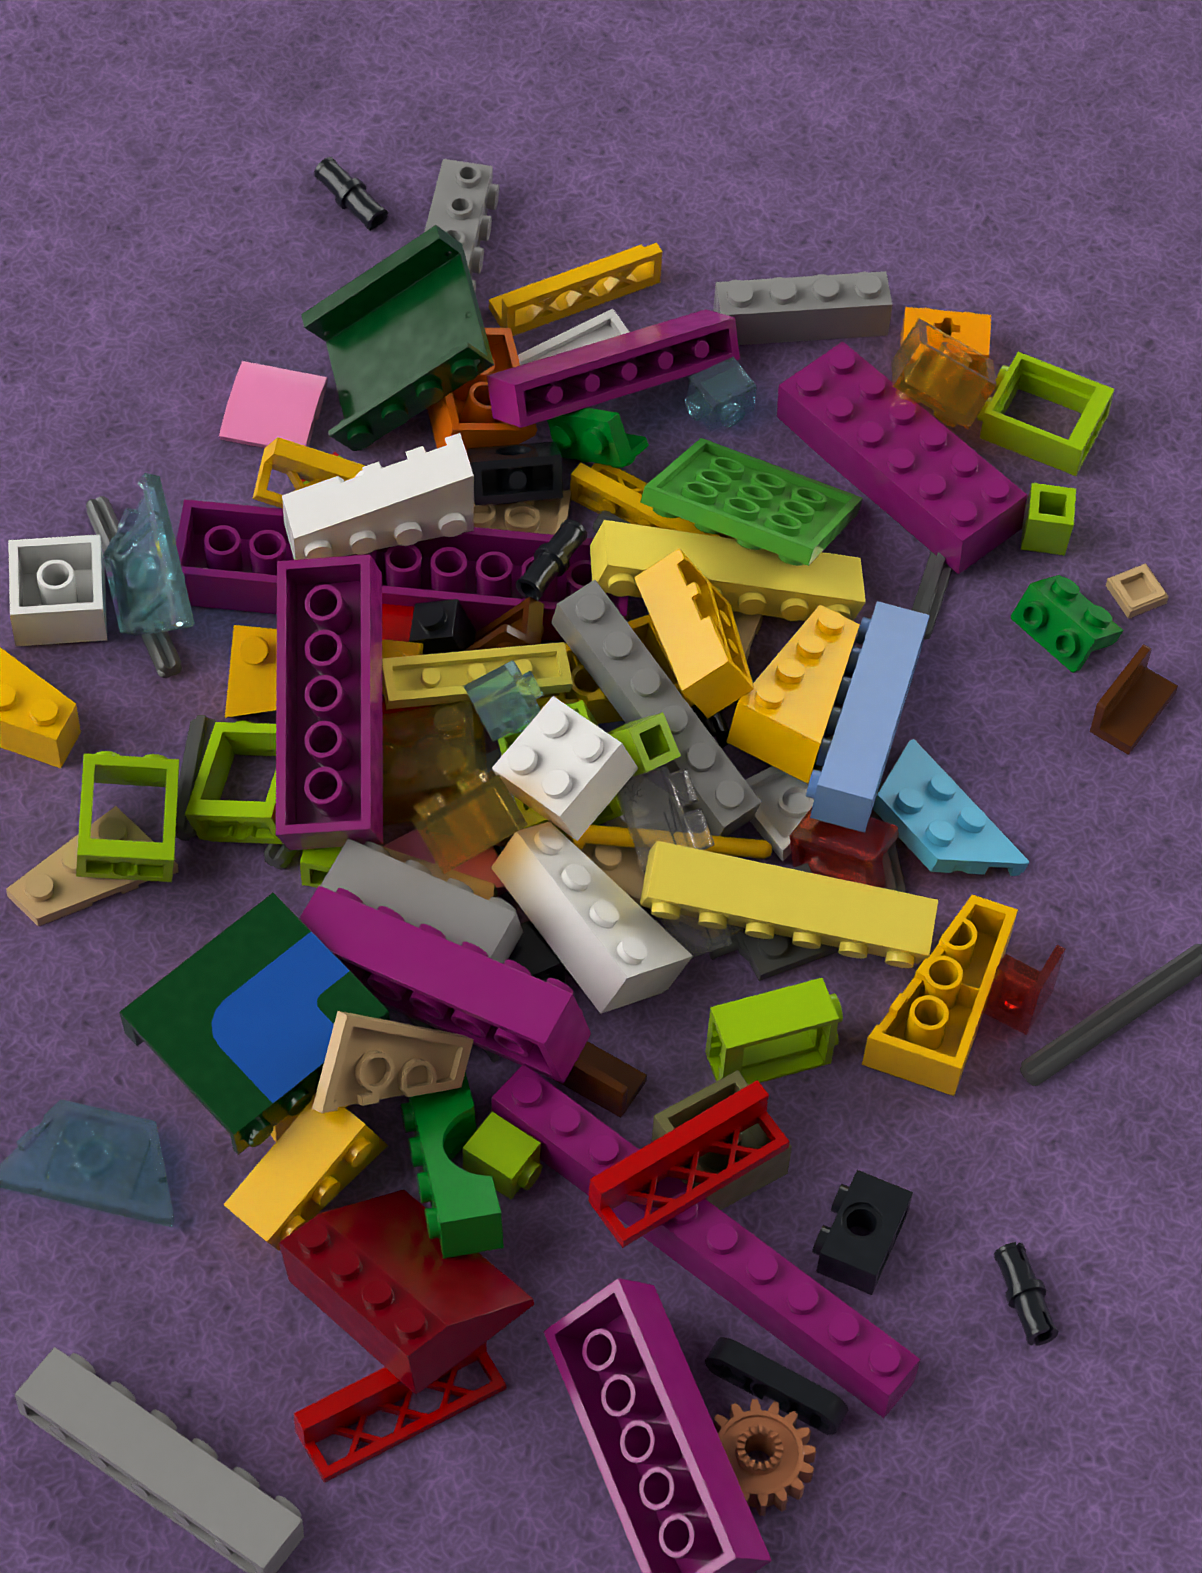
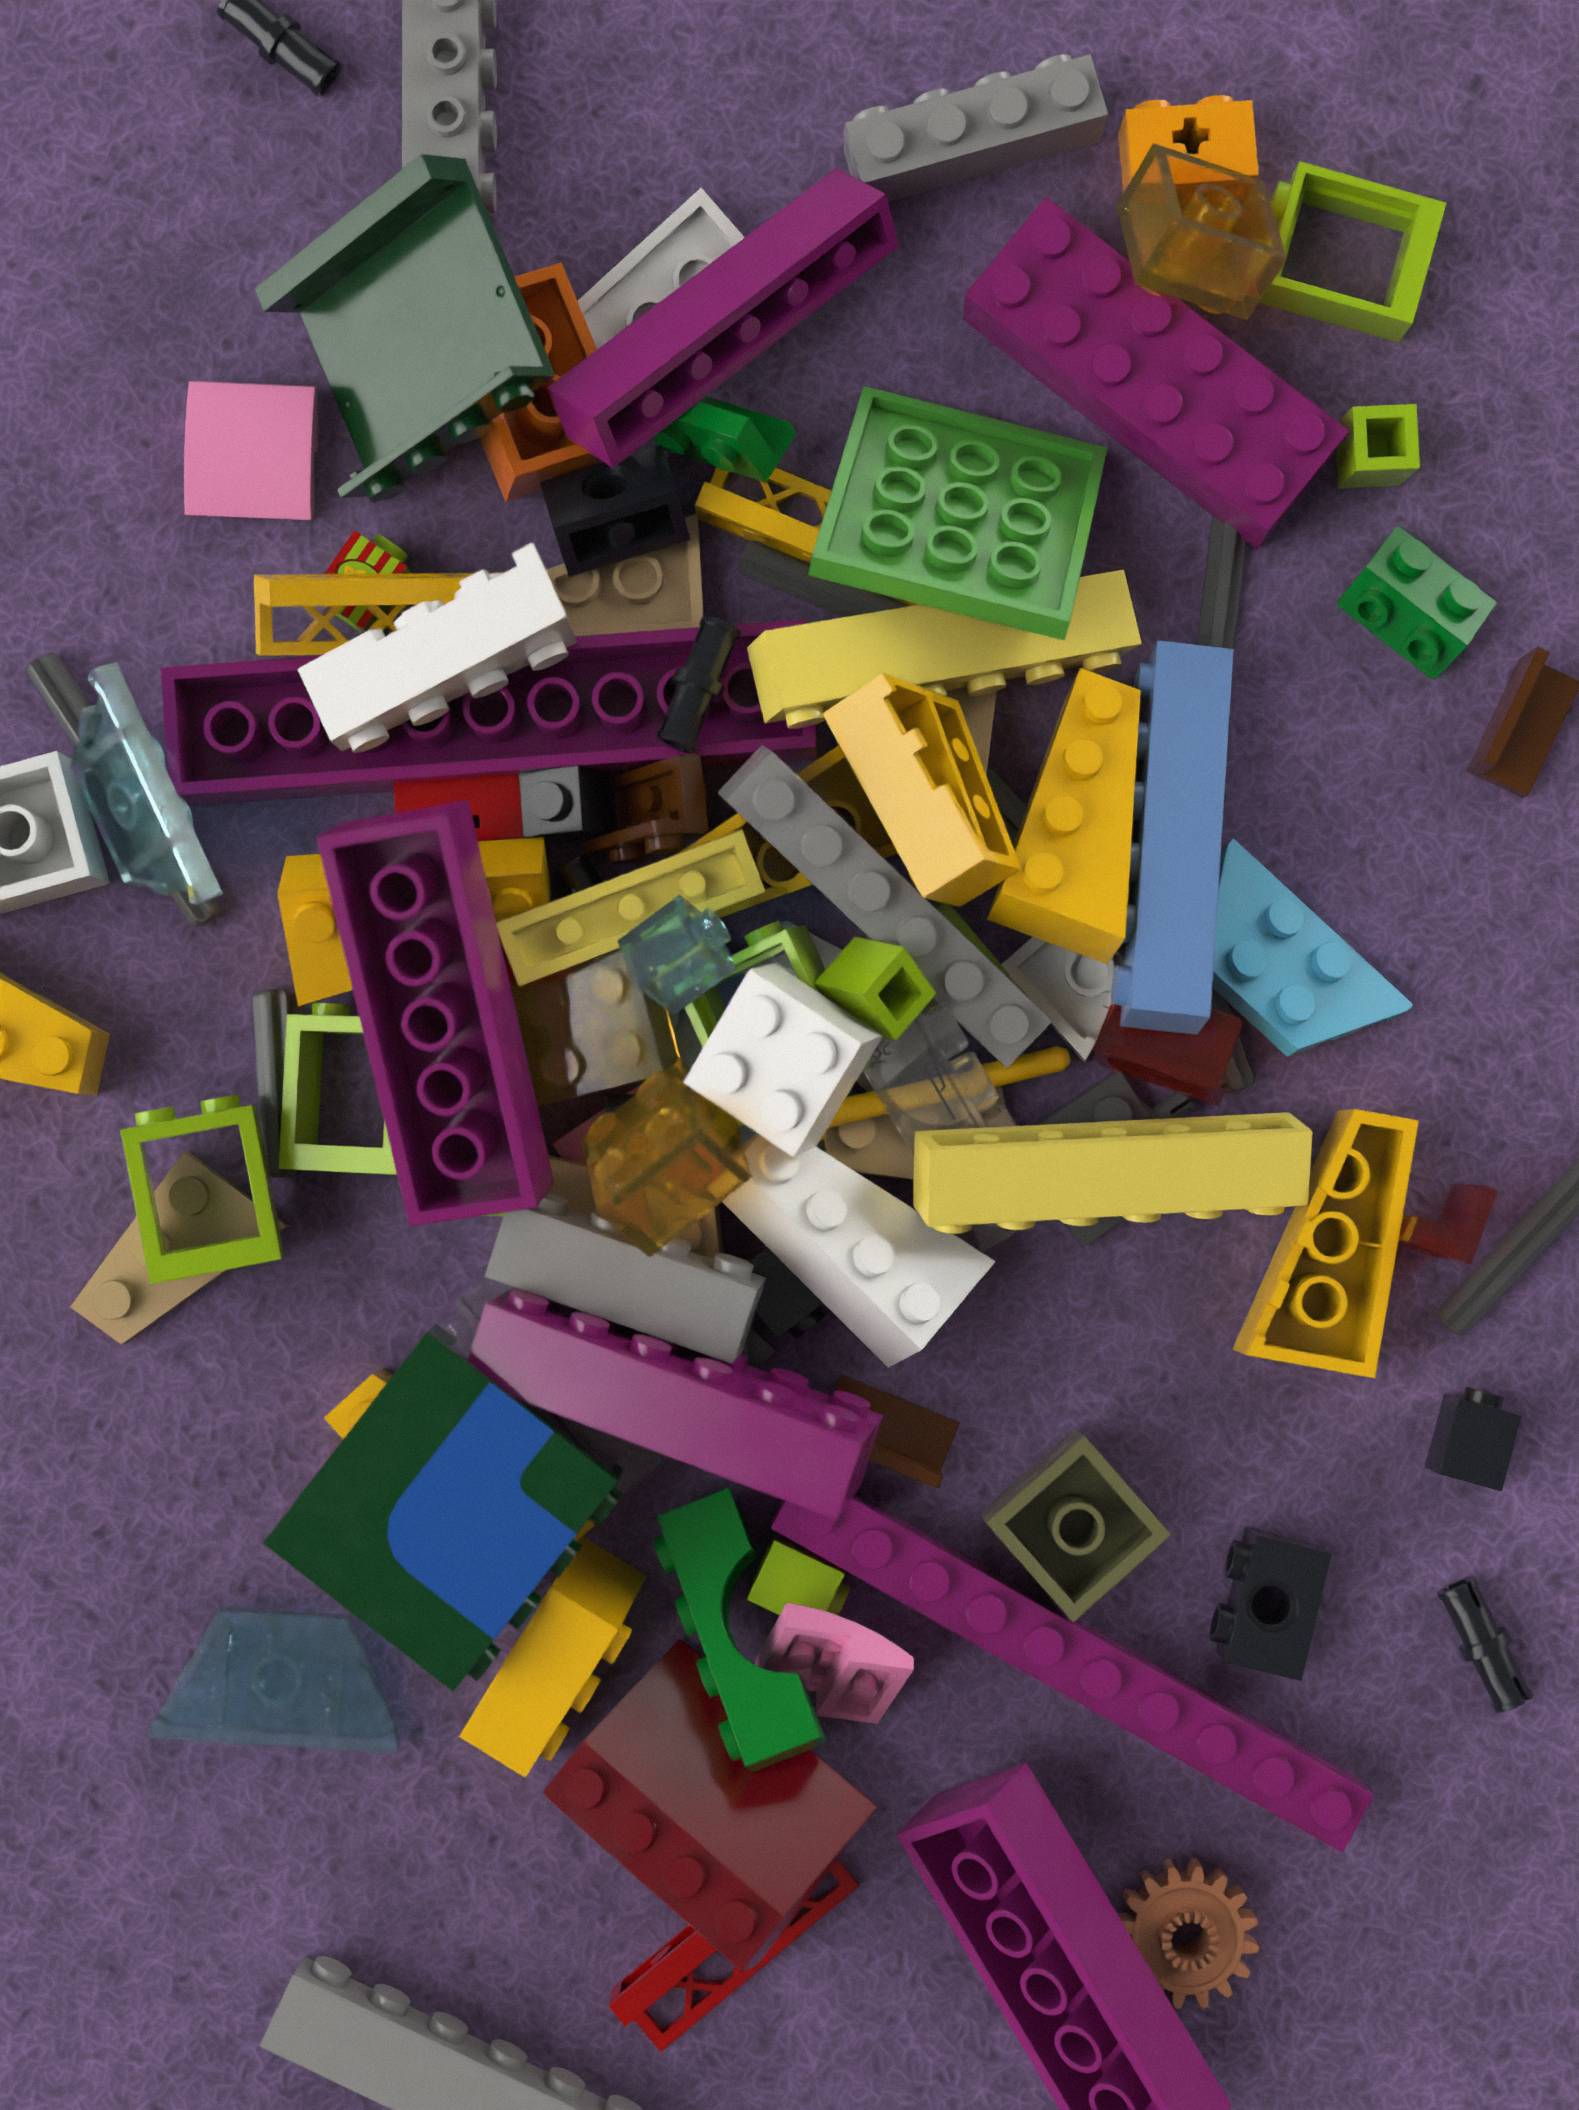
camera: 10 degrees left, 30 degrees up
(387, 1059) = (611, 1547): tan wing -> none
(532, 1202) = (841, 1660): none -> bright pink slope
(578, 289) = (640, 151): yellow fence -> none
(677, 1149) = (1027, 1594): red fence -> none
(721, 395) = (881, 310): clear light blue brick -> none
(770, 1379) = (1203, 1838): black beam -> none
(774, 1032) = (1121, 1360): lime window -> none
(1034, 1147) = (1473, 1439): none -> black brick
(1137, 591) = (1506, 528): tan tile -> none

